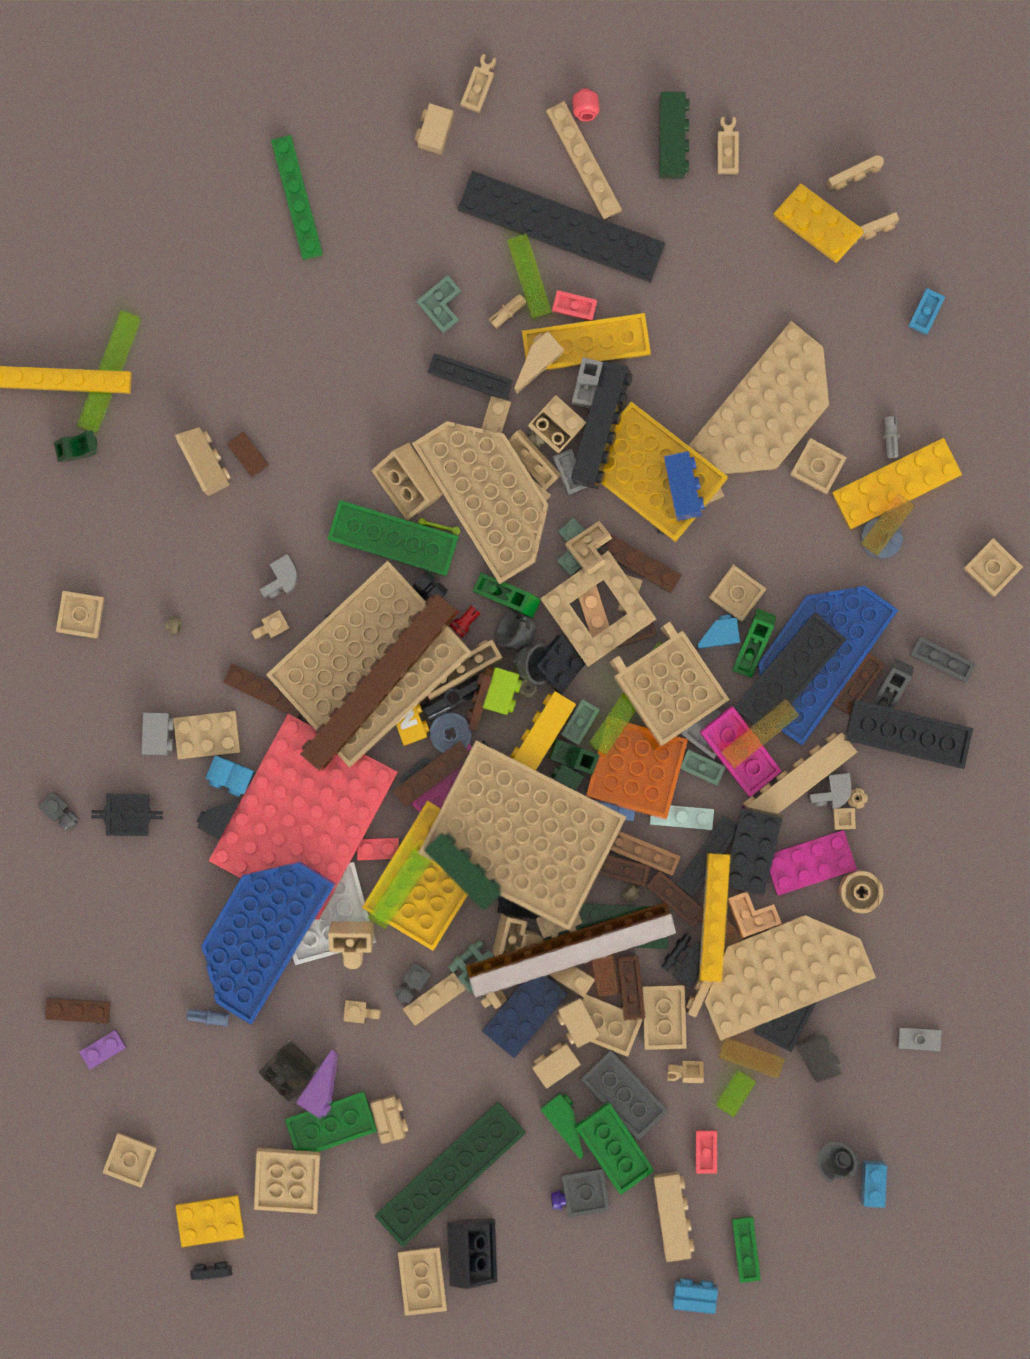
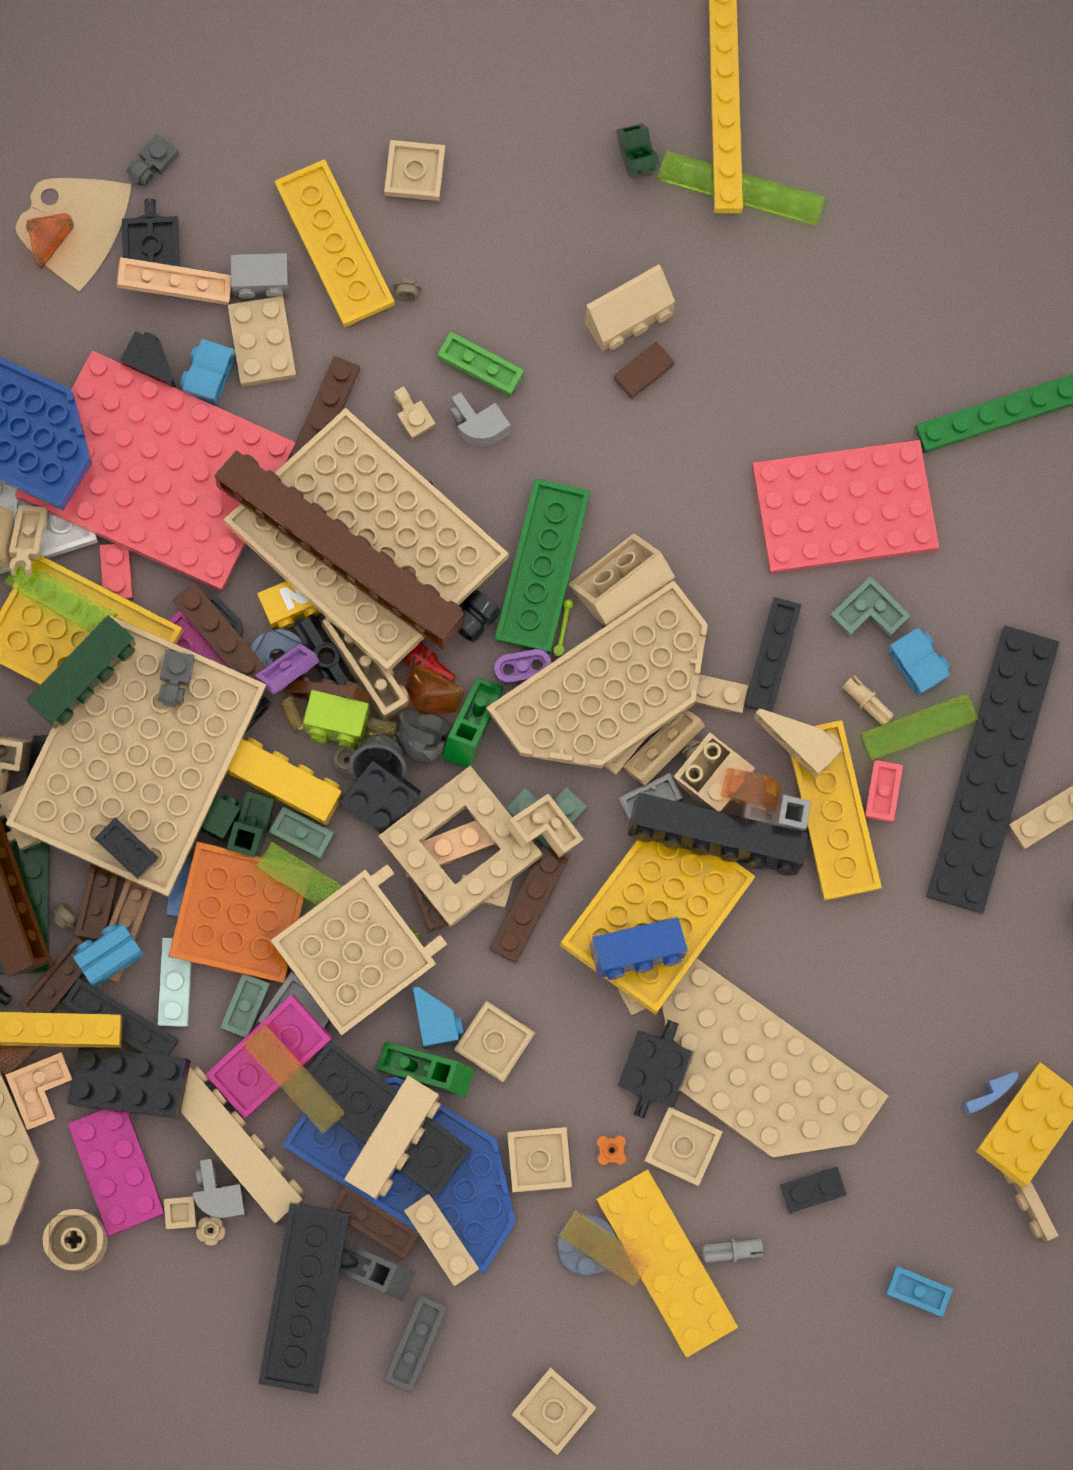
camera: 85 degrees right, 10 degrees down
(104, 858) = (97, 219): none -> tan piece
(115, 892) = (47, 235): none -> clear orange slope
(134, 677) = (334, 243): none -> yellow plate
(159, 797) = (173, 281): none -> light nougat plate
(236, 574) = (480, 364): none -> bright green plate
(352, 911) = (27, 537): none -> tan plate
(360, 315) = (845, 506): none -> coral plate
(462, 725) = (287, 668): none -> medium lavender plate
(463, 803) = (176, 670): none -> dark grey plate
(467, 557) = (521, 663): none -> medium lavender plate
(481, 272) = (918, 661): none -> dark azure brick
(483, 623) = (432, 692): none -> clear orange slope
(493, 724) = (292, 714): none -> clear yellow tile
(507, 660) = (375, 725): none -> clear yellow tile
(572, 399) = (751, 789): none -> clear orange slope
(592, 843) = (126, 848): none -> black plate
(663, 862) = (107, 954): none -> dark azure brick
(763, 481) = (656, 1068): none -> black plate
(791, 245) = (995, 1090): none -> medium blue slope
(806, 666) = (392, 1138): none -> tan brick
(821, 566) = (539, 1159): none -> tan plate
(822, 521) = (605, 1156): none -> orange plate
(852, 378) = (813, 1190): none -> black plate
(874, 637) = (441, 1240): none -> tan plate

